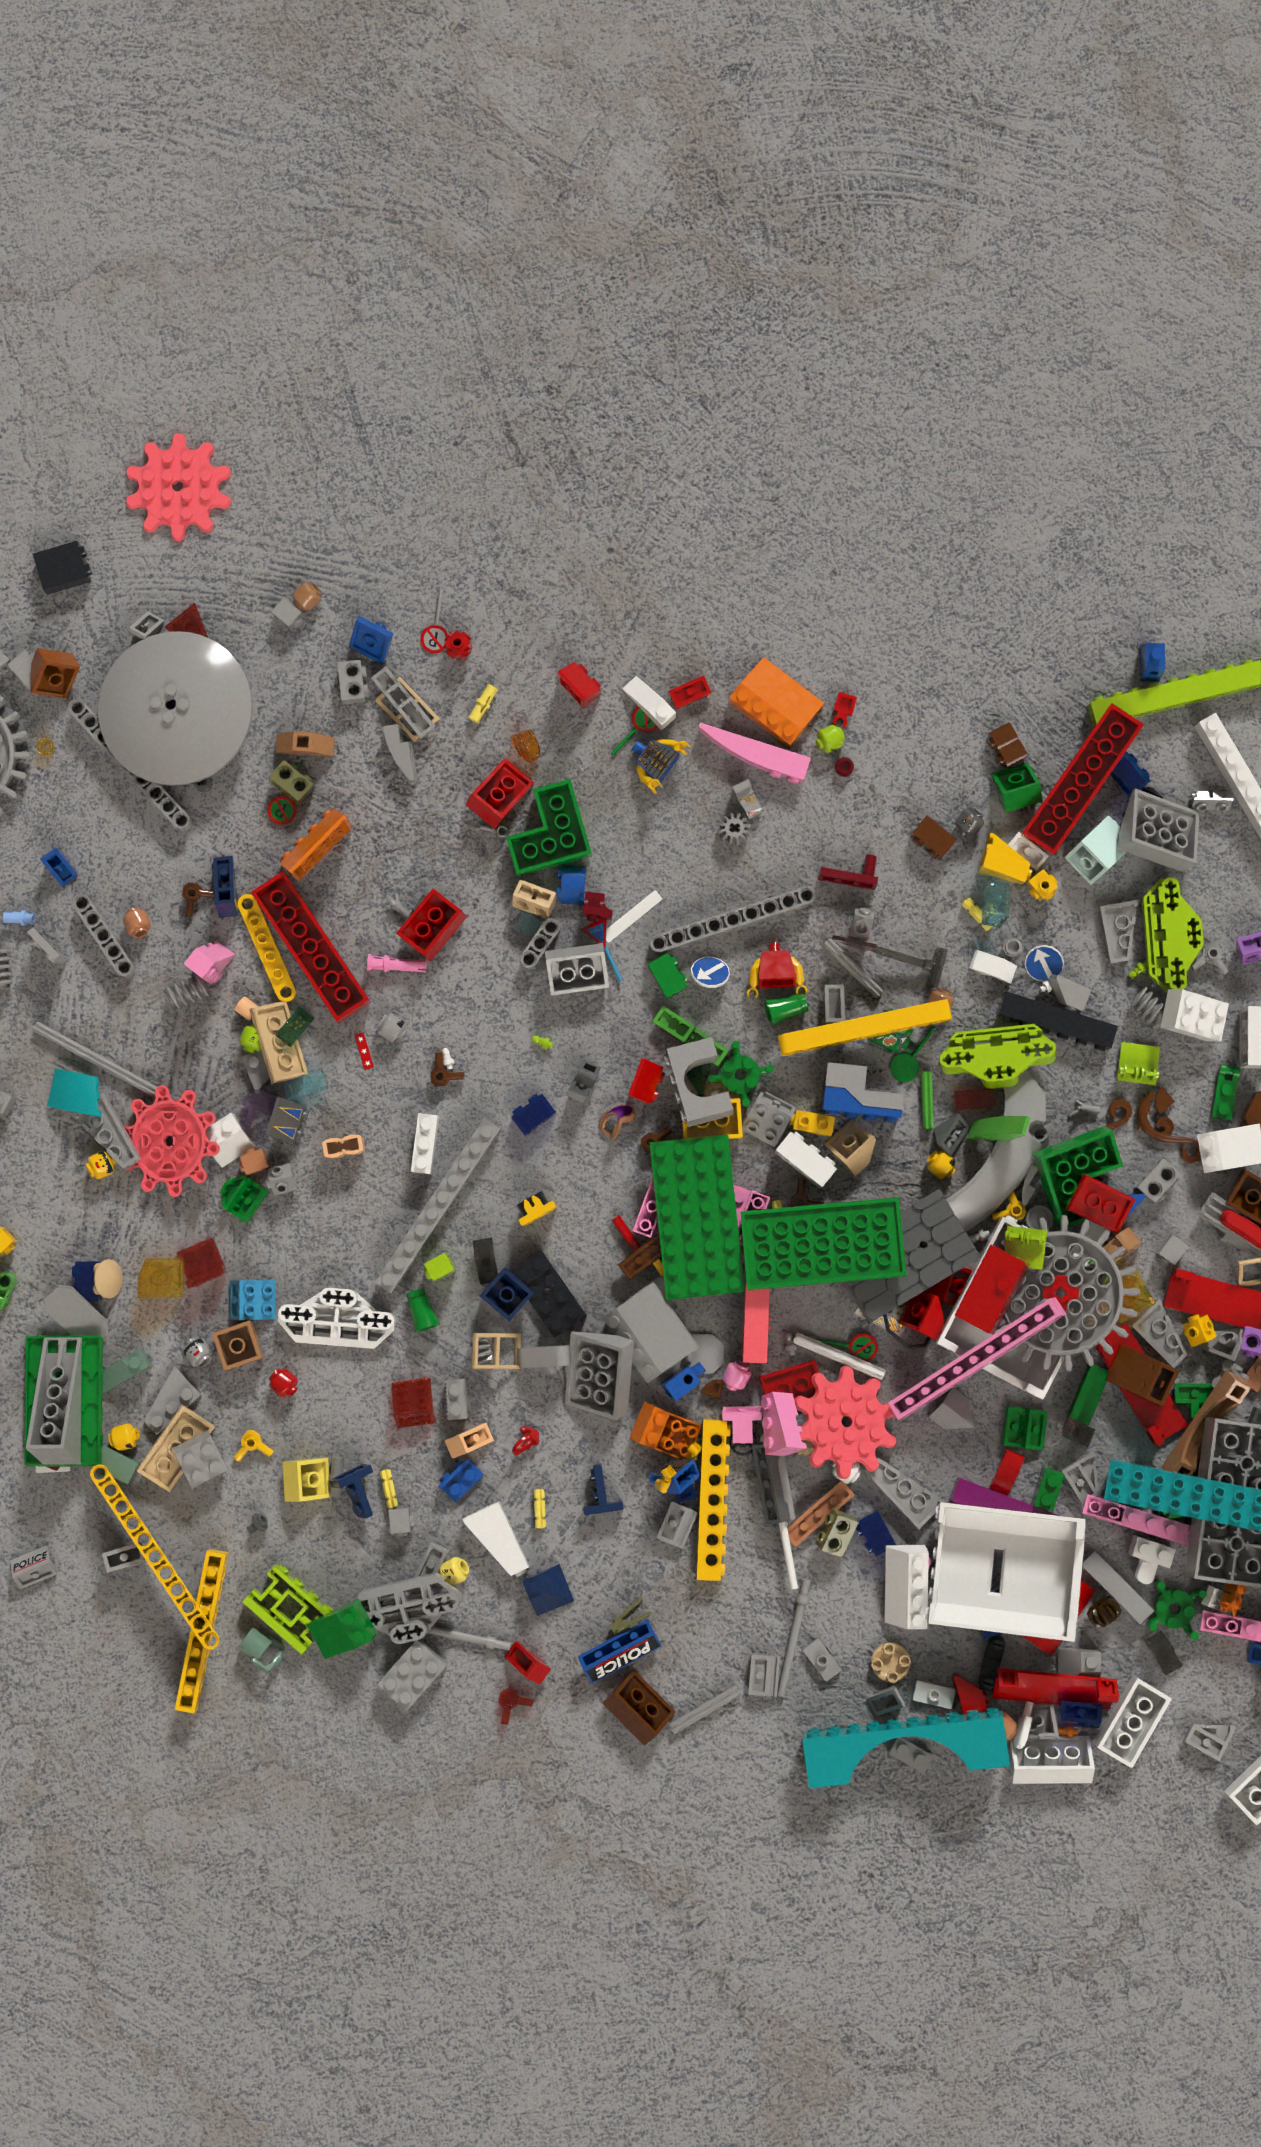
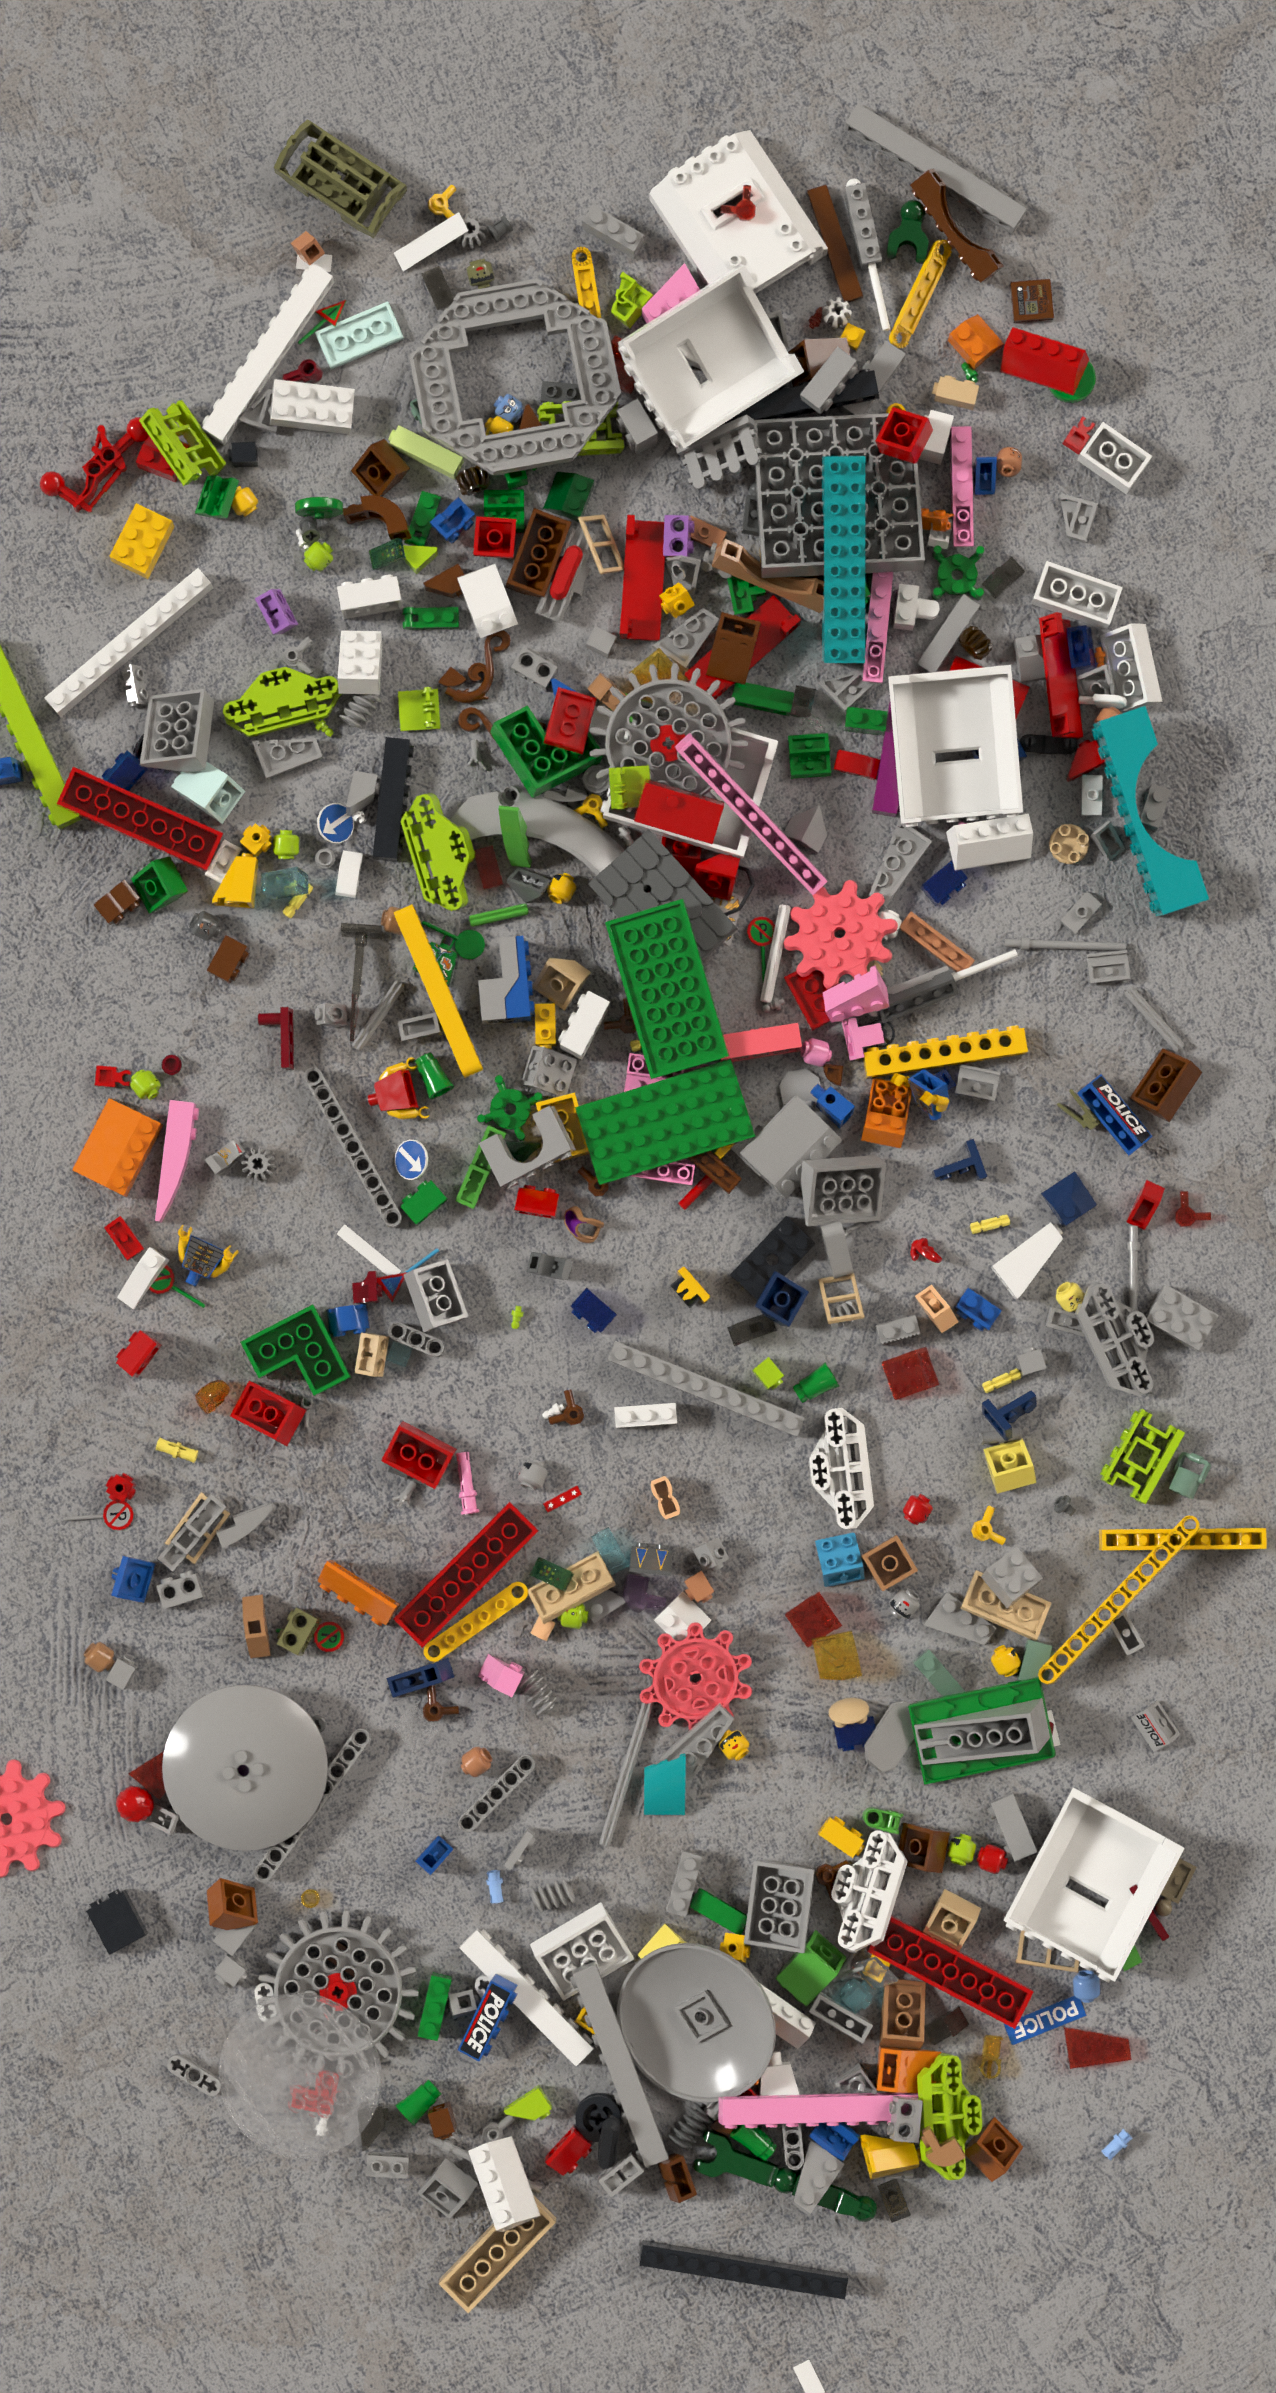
camera: 100 degrees left, 0 degrees up
(165, 603) = (134, 1804): none -> red hair
(242, 1197) = (737, 1591): green slope -> none
(342, 1629) = (1151, 1396): green slope -> none
(842, 1534) = (953, 917): olive brick -> none
(1032, 912) = (285, 845): none -> lime head

